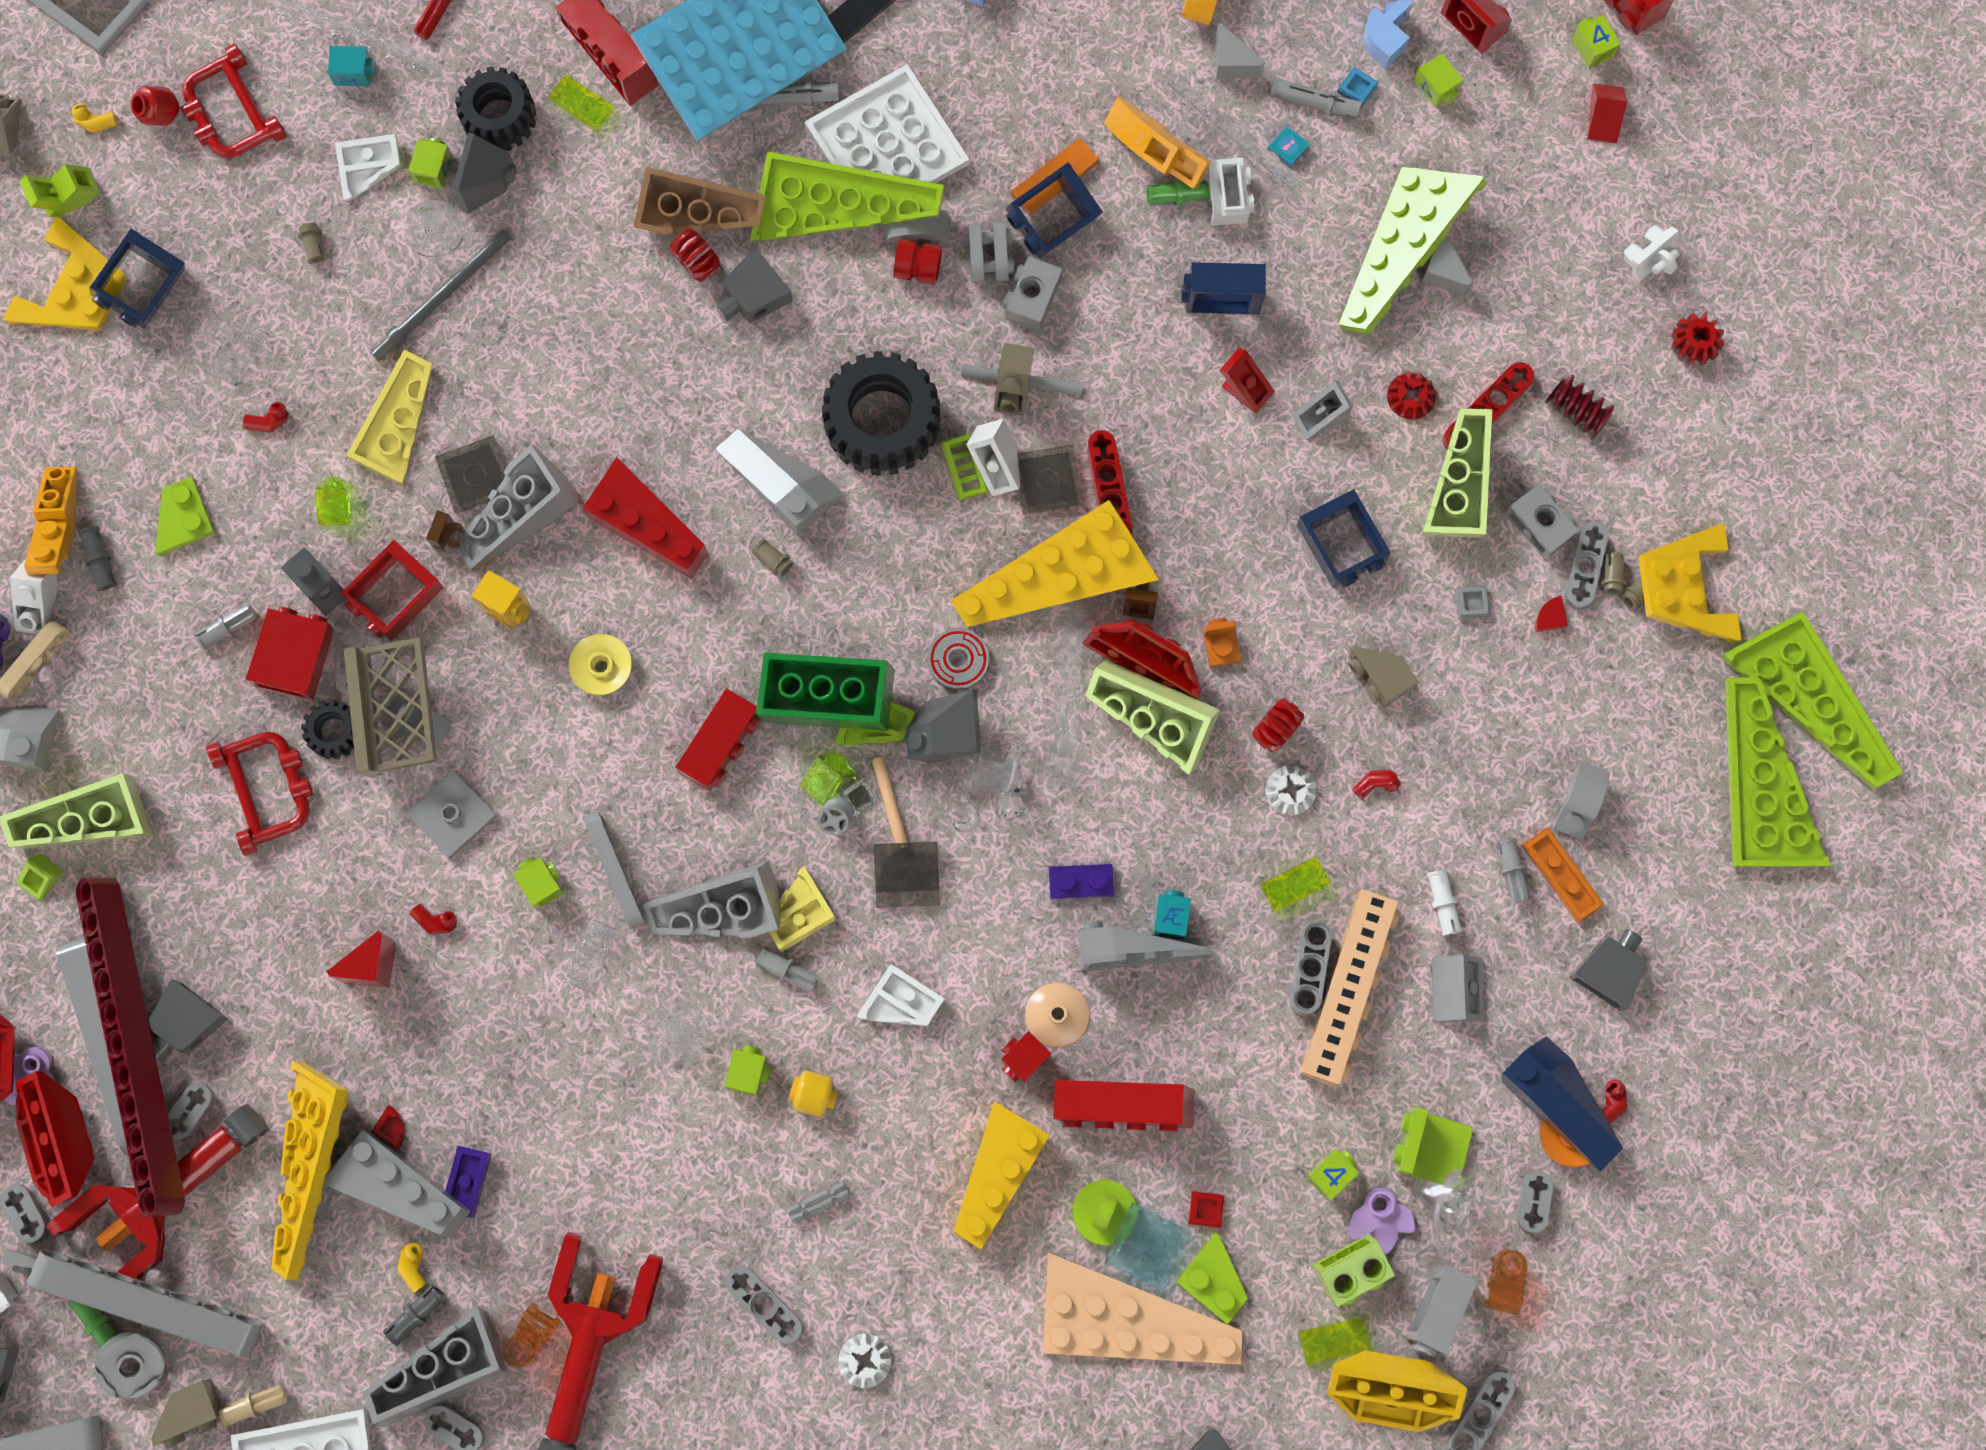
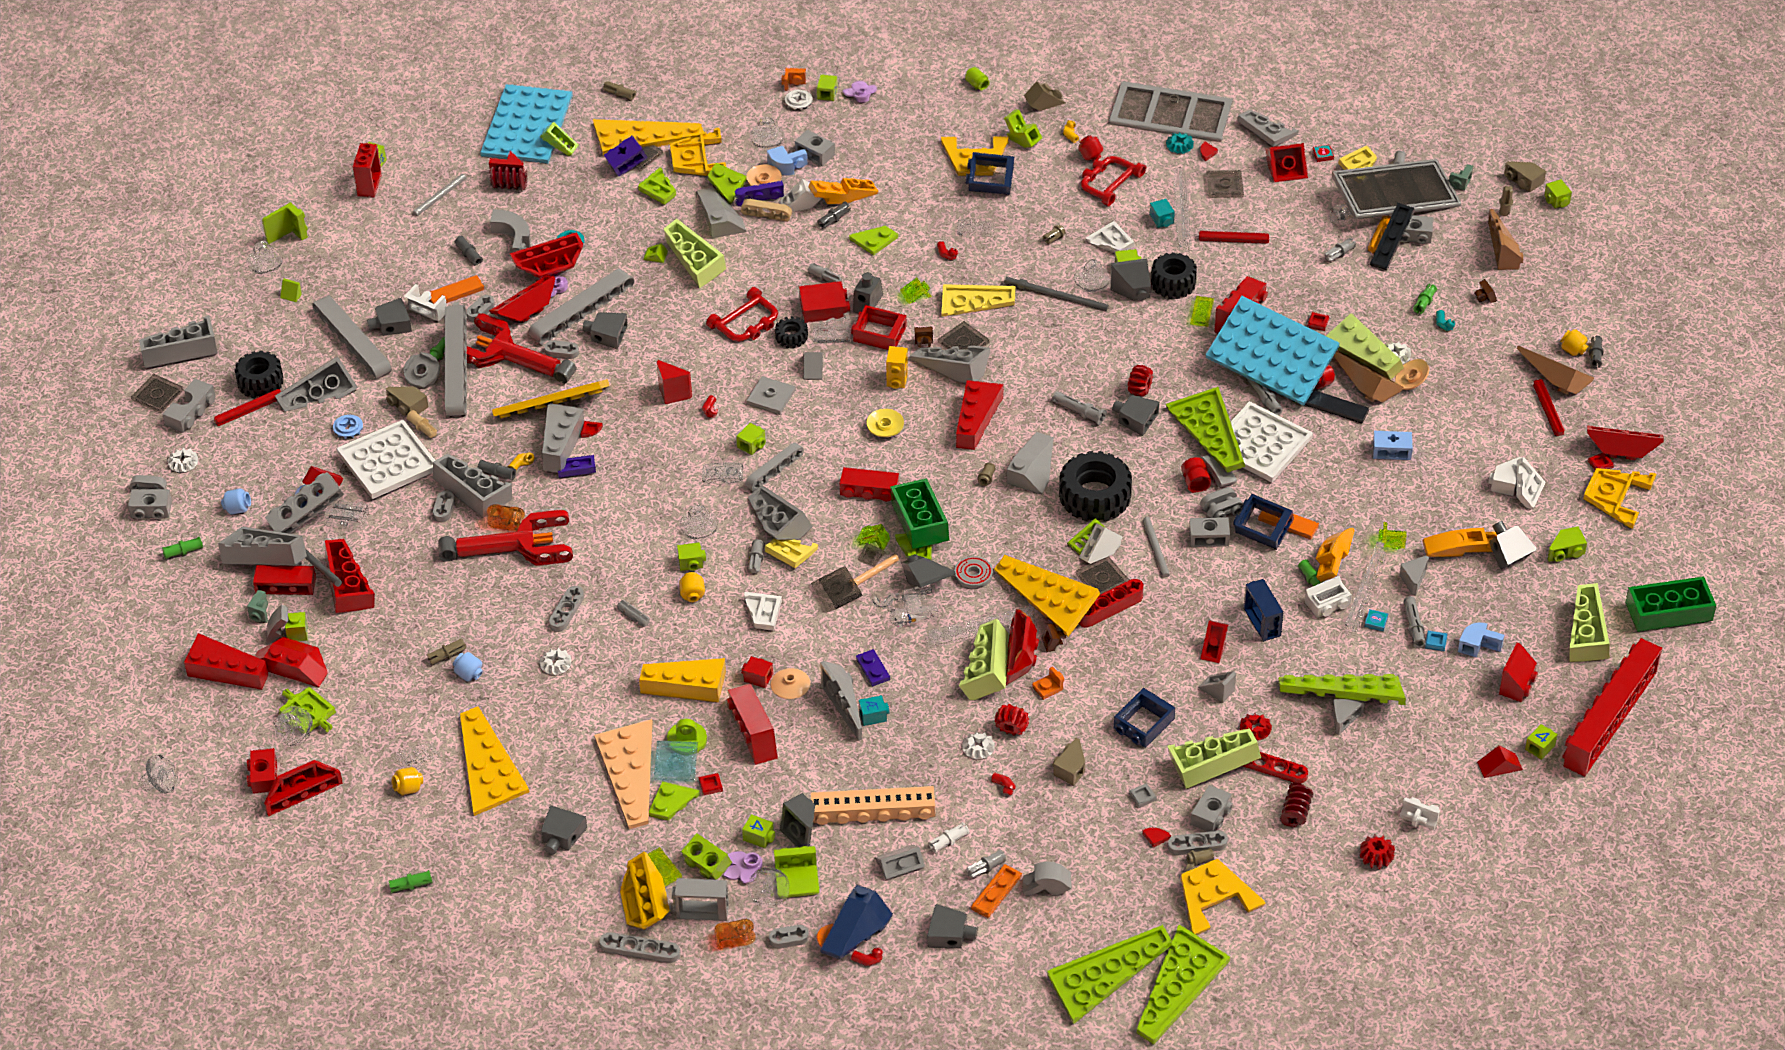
camera: 70 degrees right, 30 degrees down
(130, 1047) = (583, 308): dark red beam -> none
(363, 707) = (809, 334): dark tan fence -> none
(679, 203) = (1169, 368): medium nougat wedge -> none
(710, 358) = (1086, 410): none -> light grey pin
(833, 823) = (853, 545): light grey wheel -> none
(1013, 379) = (1150, 535): dark tan slope -> none
(1159, 52) = (1392, 538): none -> clear neon green bracket
(1294, 884) = (922, 764): clear neon green tile -> none
(1319, 955) = (876, 779): light grey beam -> none
(1353, 1106) = (798, 820): none -> dark grey slope
(1439, 81) = (1463, 673): lime brick -> none

